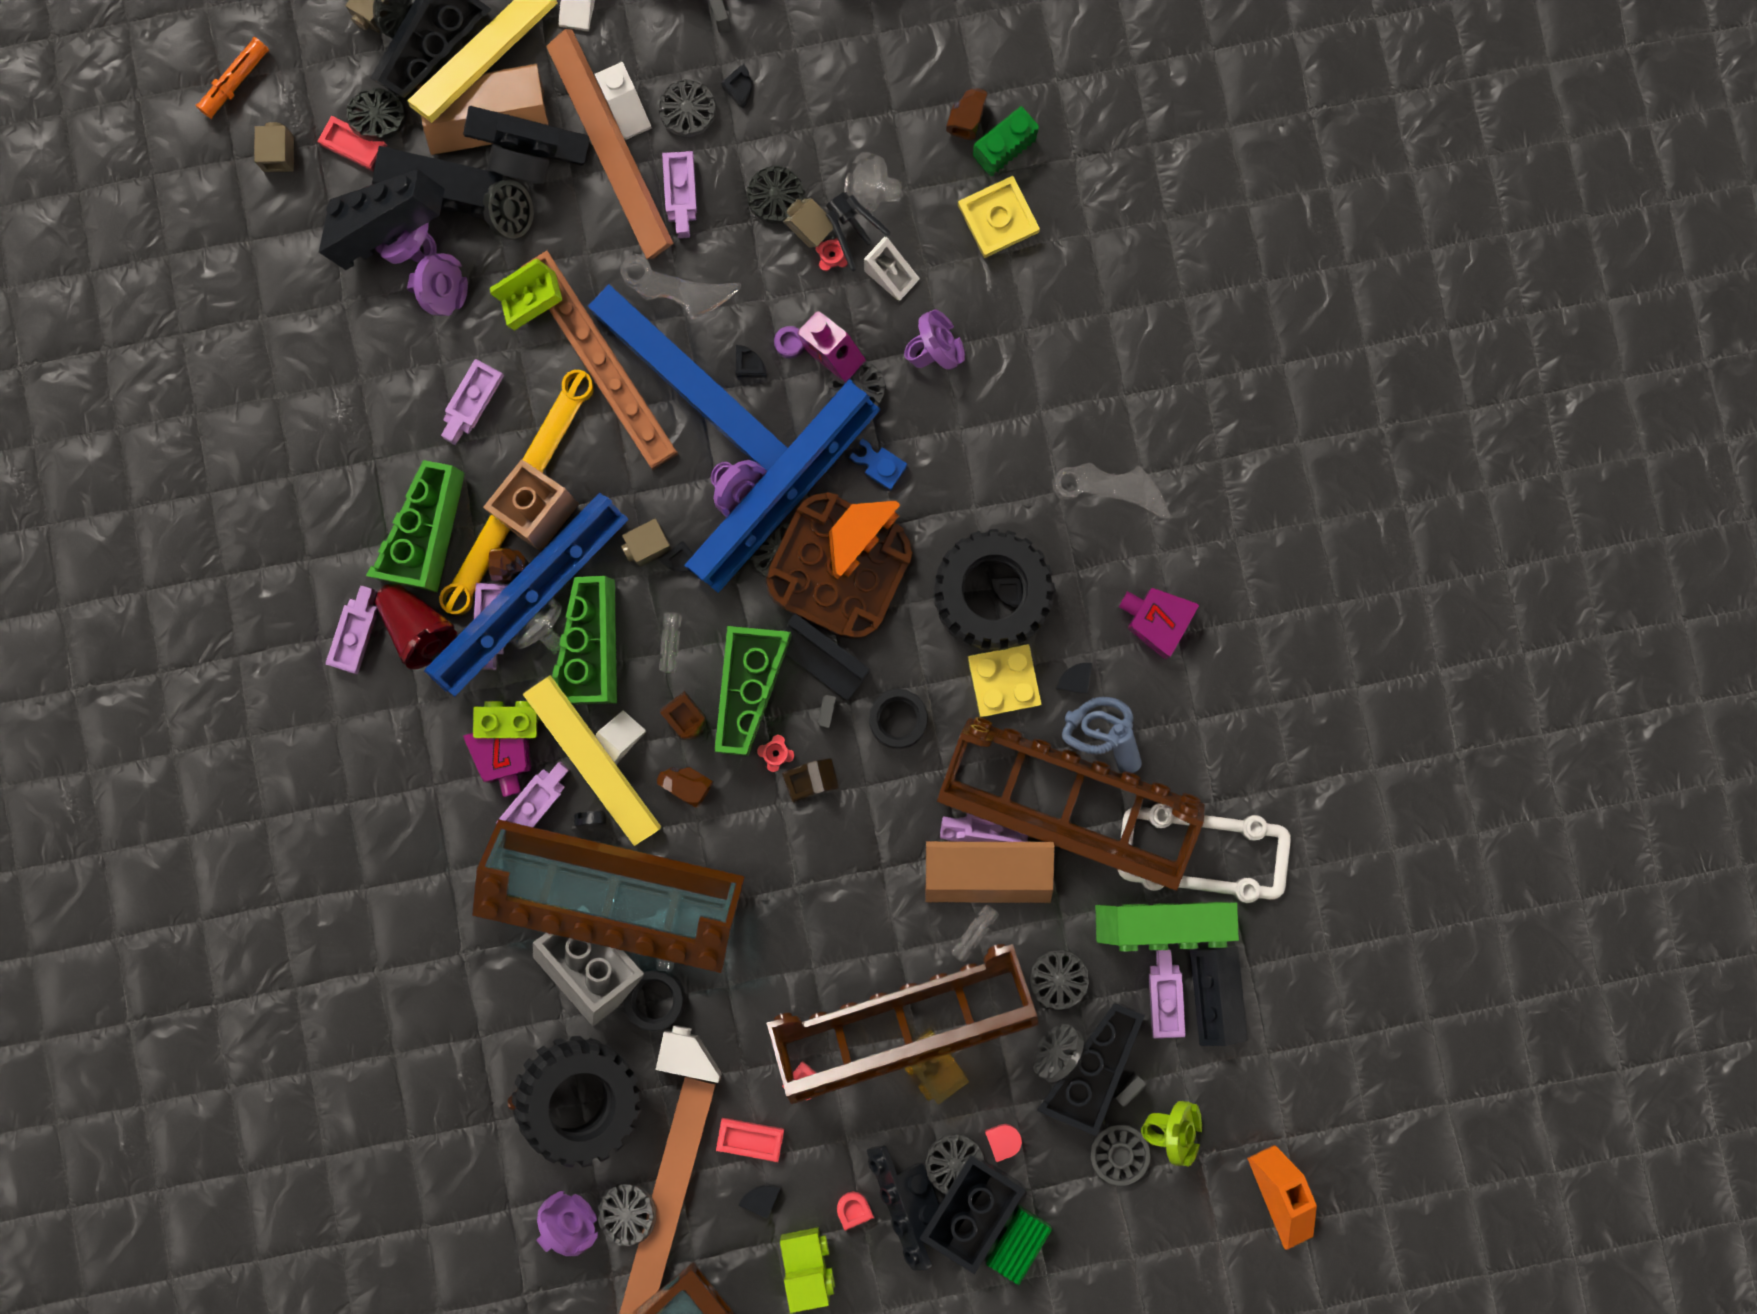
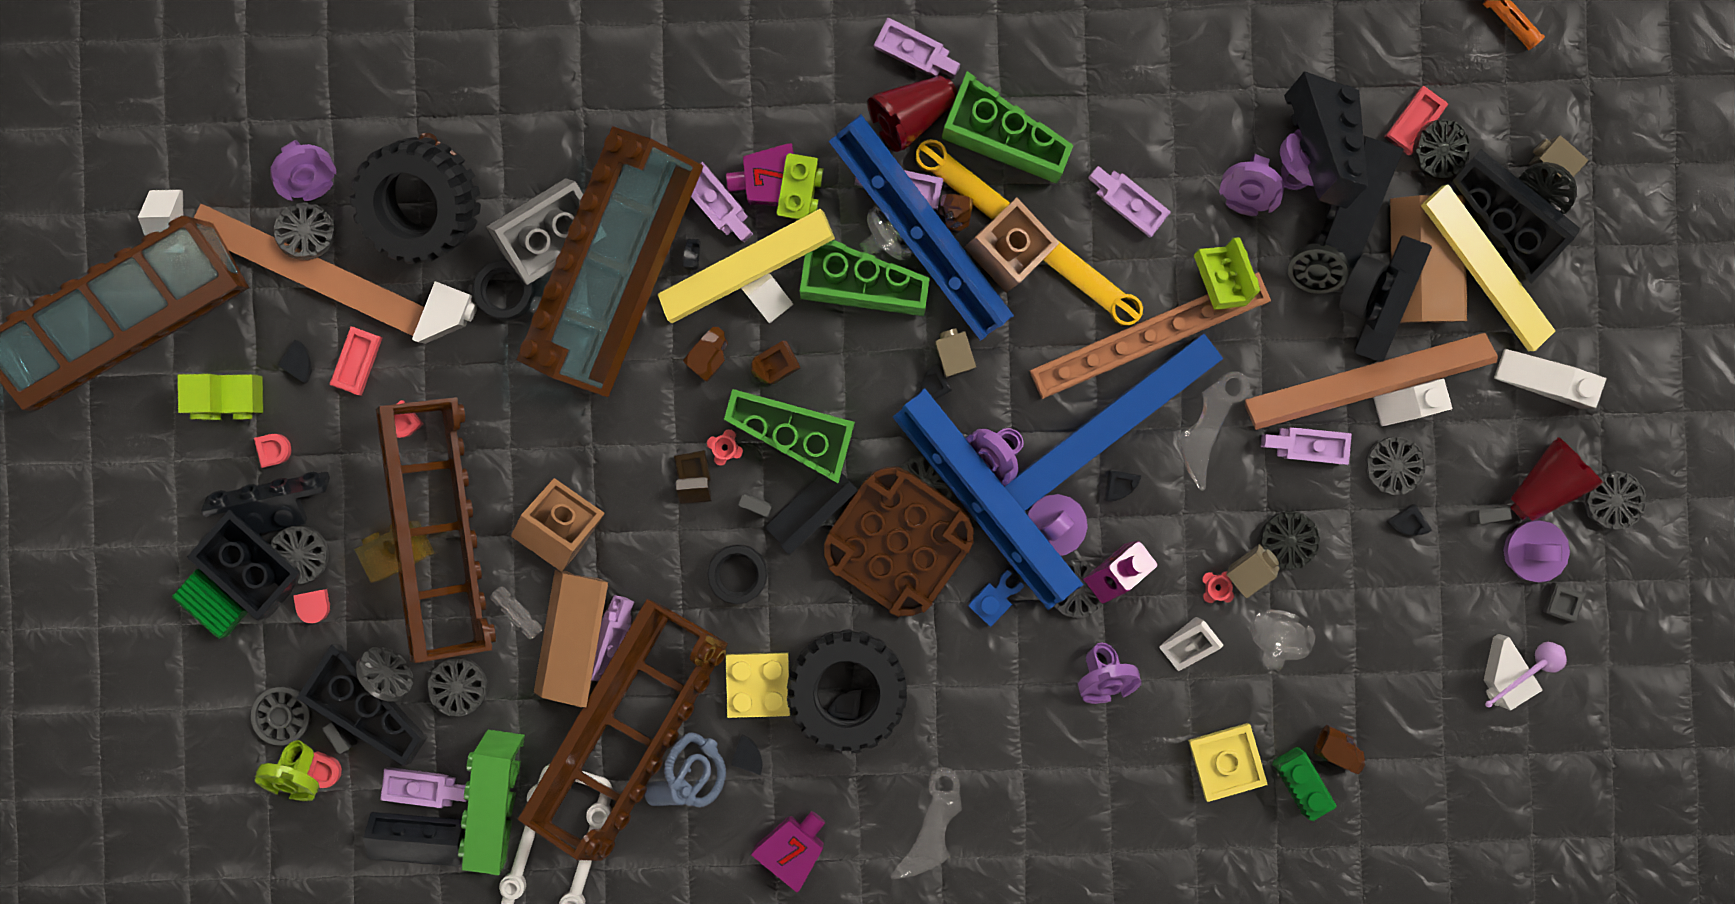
camera: 95 degrees right, 5 degrees up
(274, 148) = (1424, 41): dark tan brick -> none
(670, 642) = (852, 361): clear axle -> none
(788, 342) = (1135, 528): medium lavender tile -> none
(792, 413) = (1060, 522): none -> medium lavender tile
(843, 209) = (1259, 608): black plant -> none
(858, 532) = (926, 565): orange slope -> none
(879, 906) = (557, 524): none -> medium nougat slope
(1165, 1098) = (325, 769): none -> coral tile
(1285, 1195) = (214, 868): orange slope -> none

